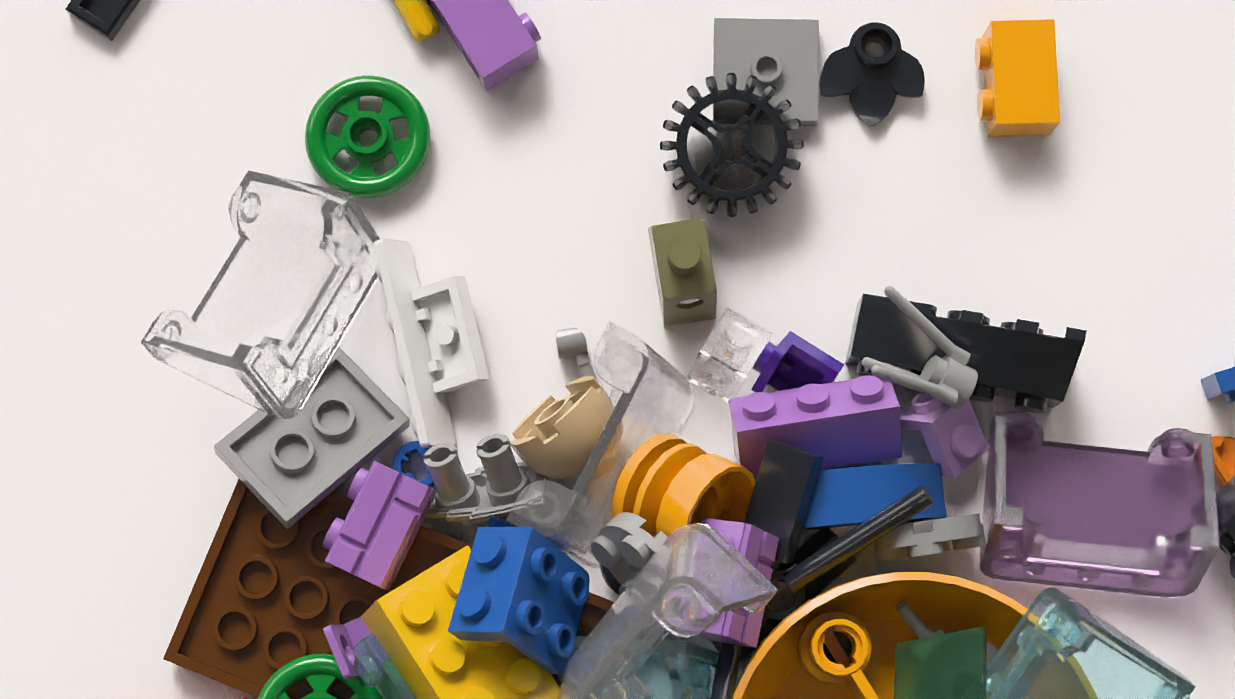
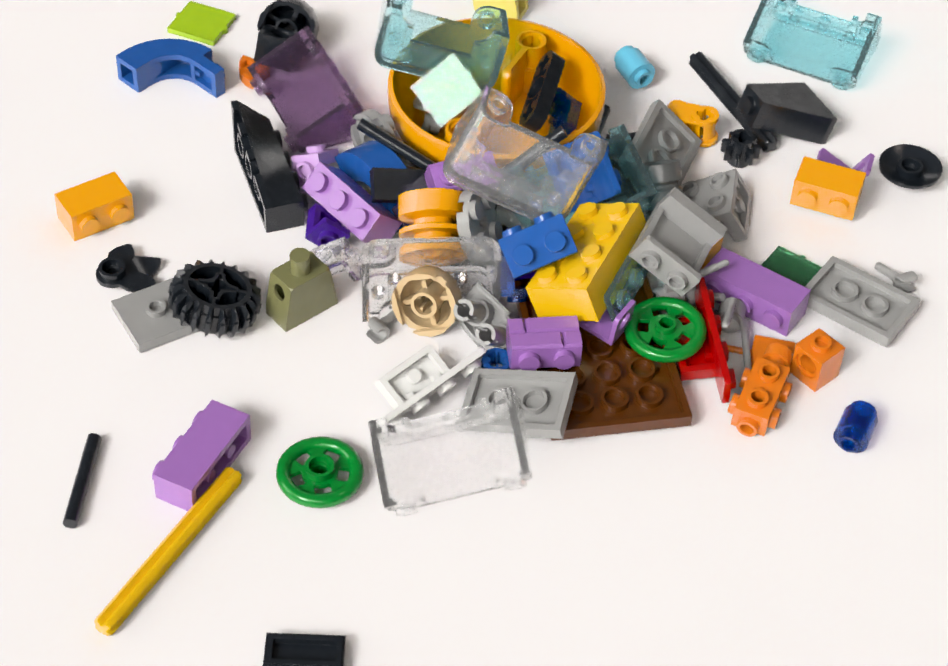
camera: 125 degrees left, 35 degrees down
(941, 378) = (291, 153): light grey plant -> none

